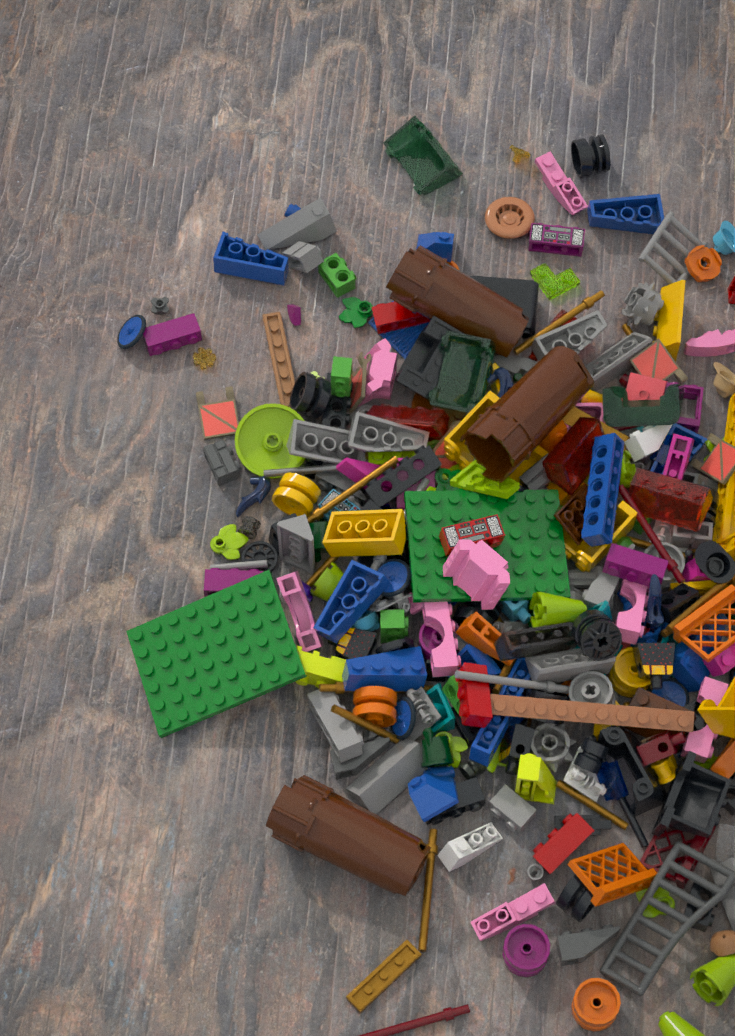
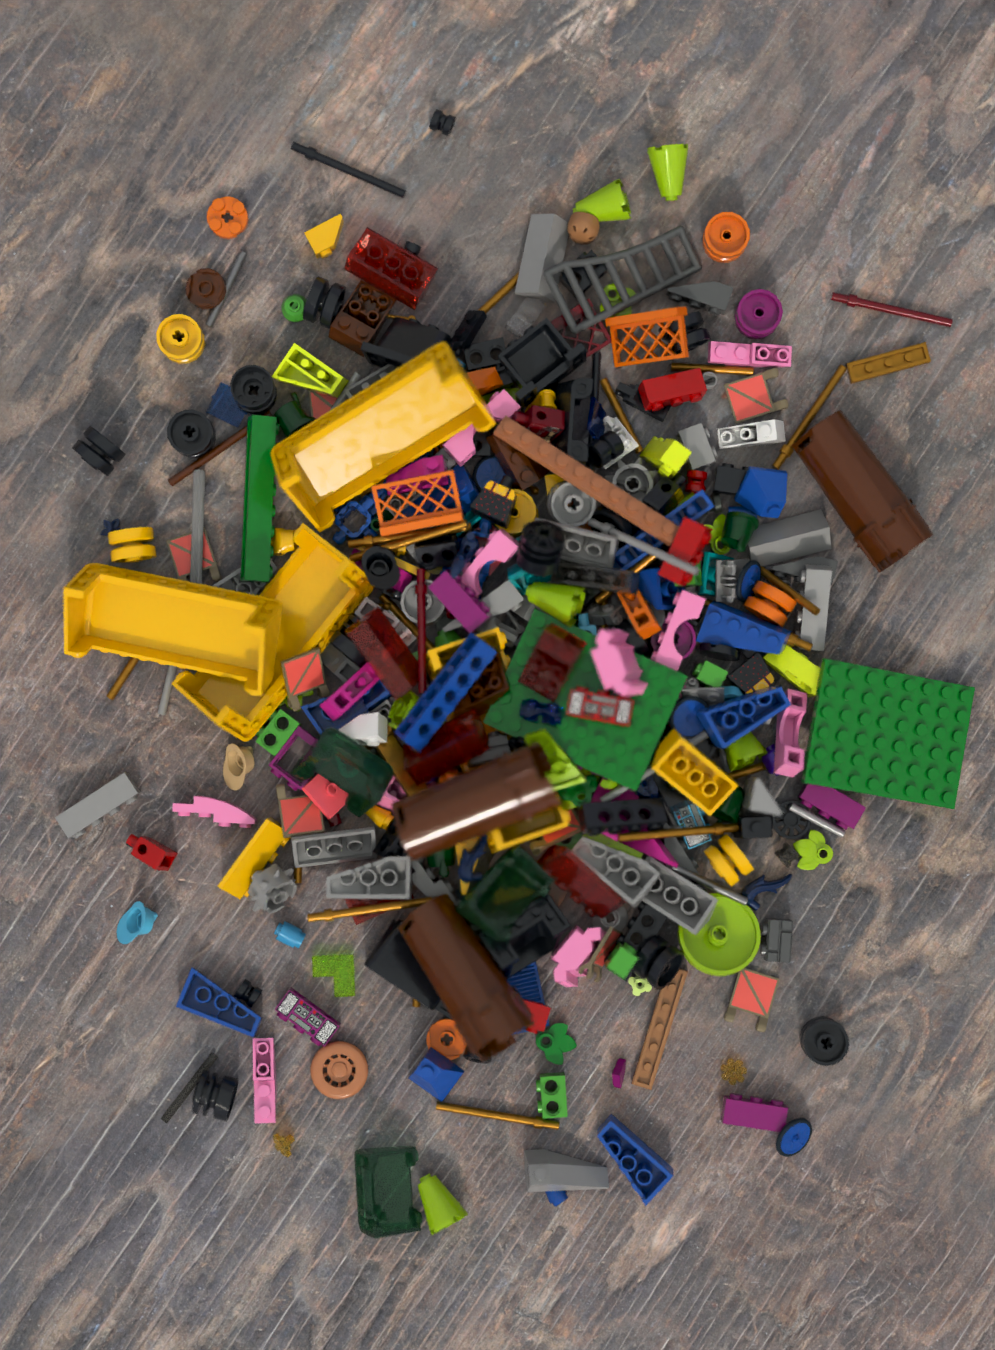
camera: 150 degrees left, 25 degrees up
(144, 408) = (835, 1046): none -> black wheel
(160, 310) = (746, 1150): dark grey plate -> none
(303, 256) = (578, 1131): light grey piece -> none
(375, 243) = (537, 1121): none -> pearl gold bar
(379, 165) = (439, 1204): none -> lime cone
(489, 880) = (751, 396): none -> coral flag
(494, 779) = (695, 485): none -> red wheel
(522, 513) = (549, 711): none -> hinge
(532, 556) = (552, 661): none -> clear red slope
(548, 881) = (737, 370): none -> pearl gold bar
(607, 285) = (289, 934): none -> dark azure brick
(613, 151) = (188, 1088): none -> clear smoke bar
(615, 234) = (244, 989): none -> black wheel
(652, 244) = (182, 921): light grey bar -> none
(694, 266) = (169, 899): orange plate -> none
(712, 418) = (281, 735): none -> bright green brick

